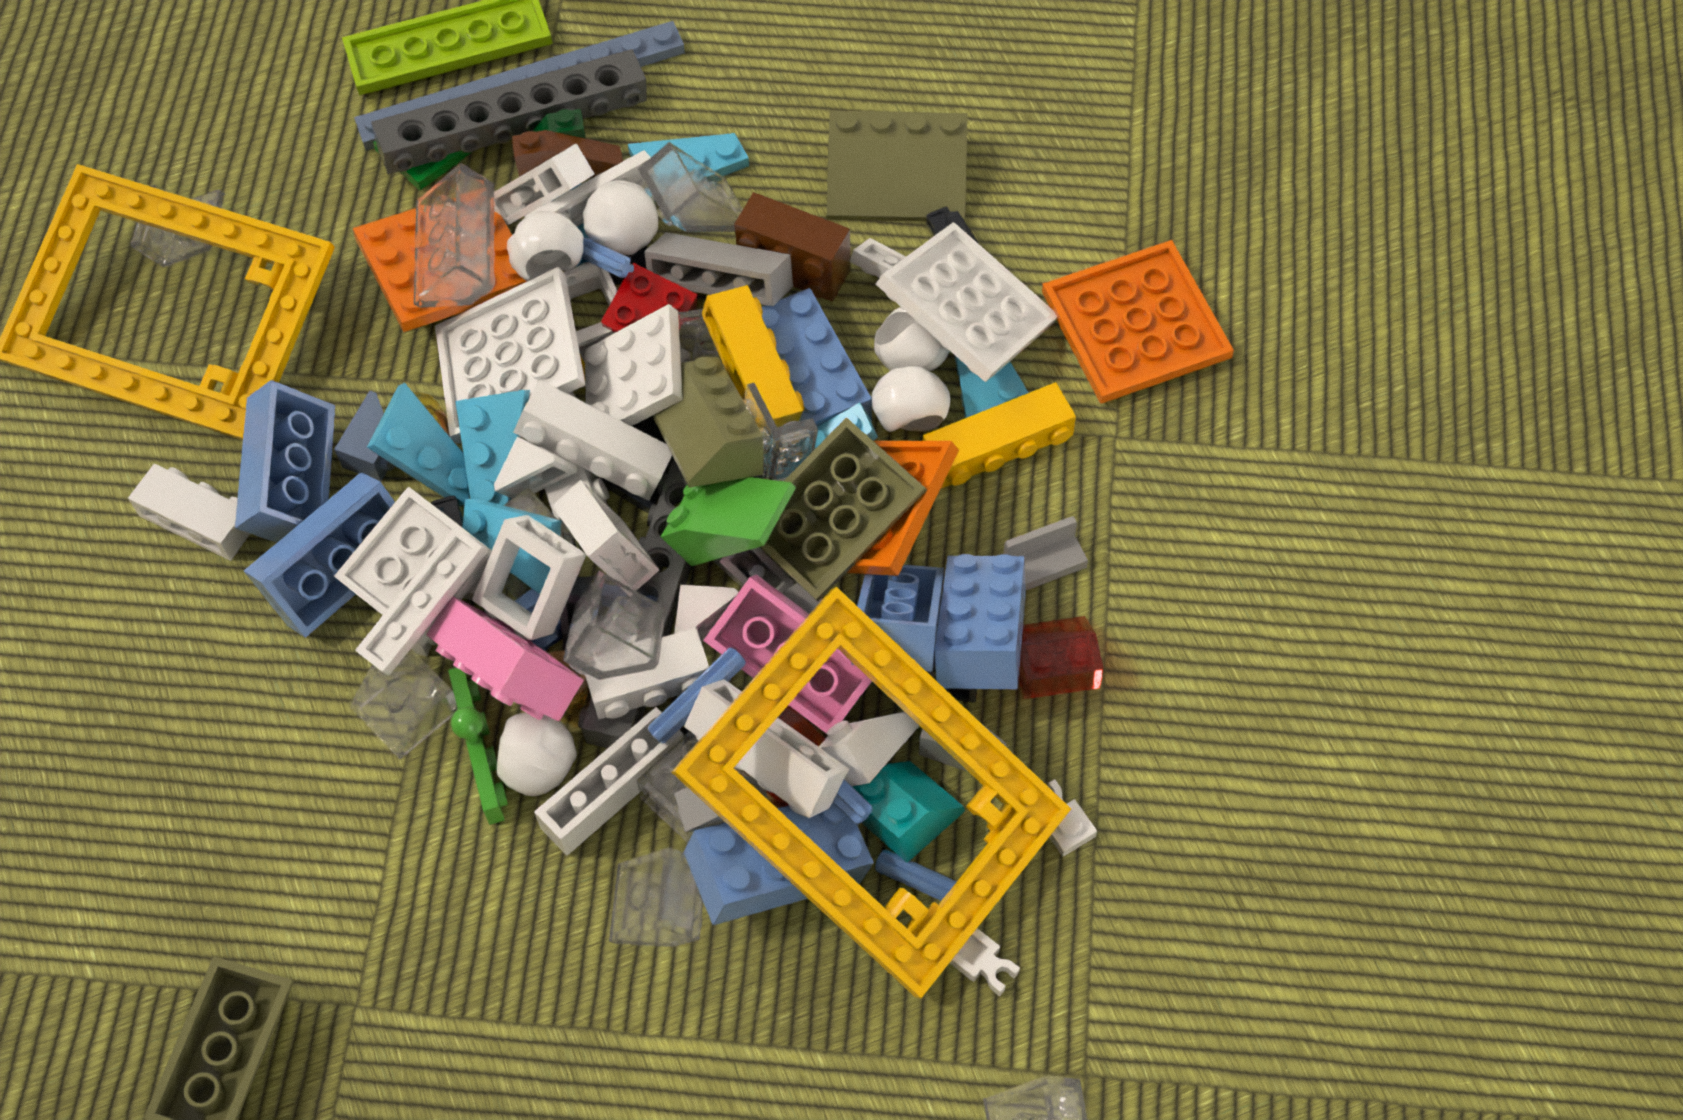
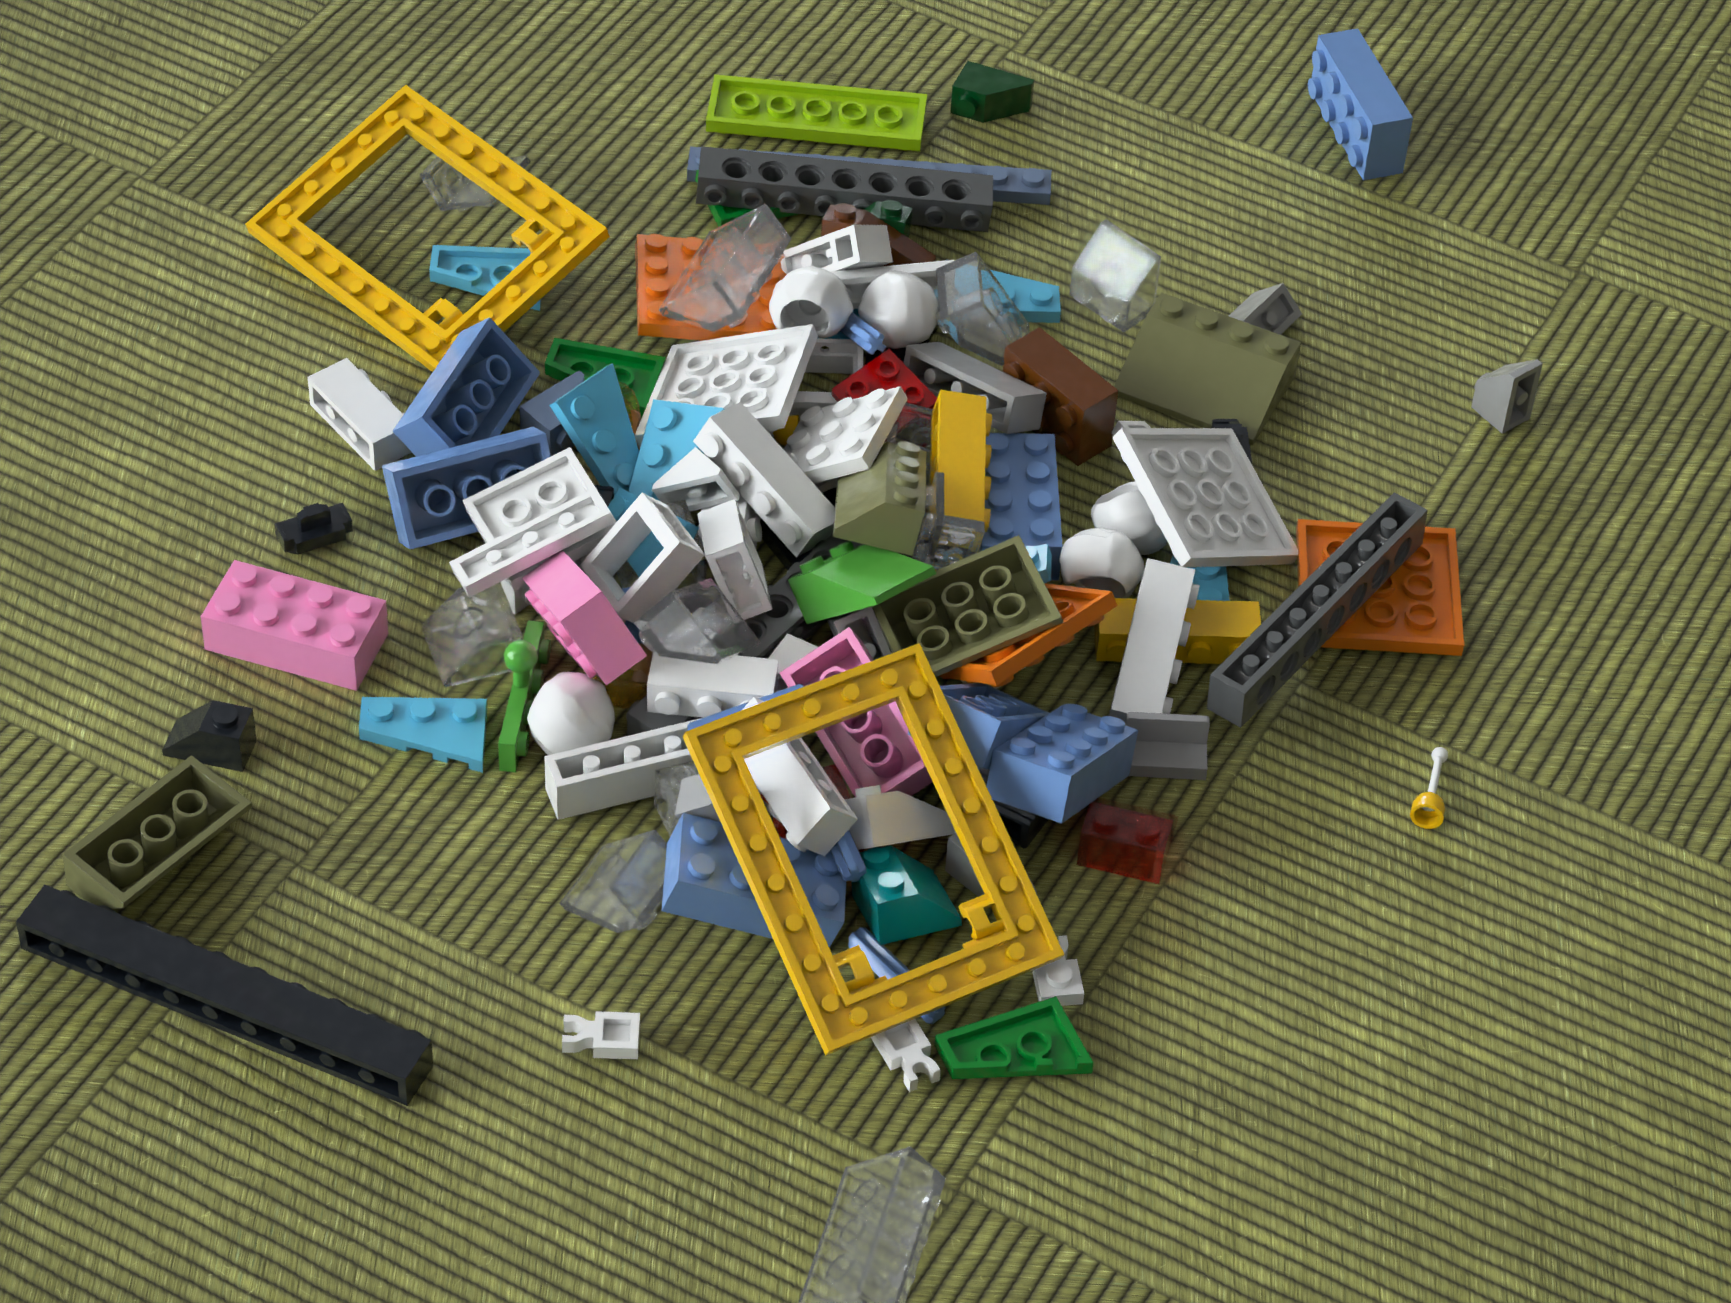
camera: 20 degrees right, 15 degrees down
(206, 649) = (314, 528): none -> black piece
(217, 911) = (214, 735): none -> black slope
(226, 316) = (474, 267): none -> medium azure wing
(237, 761) = (295, 625): none -> bright pink brick
(386, 370) = (633, 368): none -> green wing
(409, 808) = (434, 725): none -> medium azure wing
(722, 1062) = (610, 1035): none -> white plate
(782, 108) = (1116, 277): none -> clear slope
(915, 89) = (1269, 309): none -> light grey panel
(995, 465) = (1154, 639): none -> white brick
(1066, 909) = (1015, 1044): none -> green wing
(1110, 375) = (1316, 610): none -> dark grey brick
(1149, 92) = (1507, 394): none -> light grey slope
(1280, 519) = (1429, 807): none -> yellow hinge

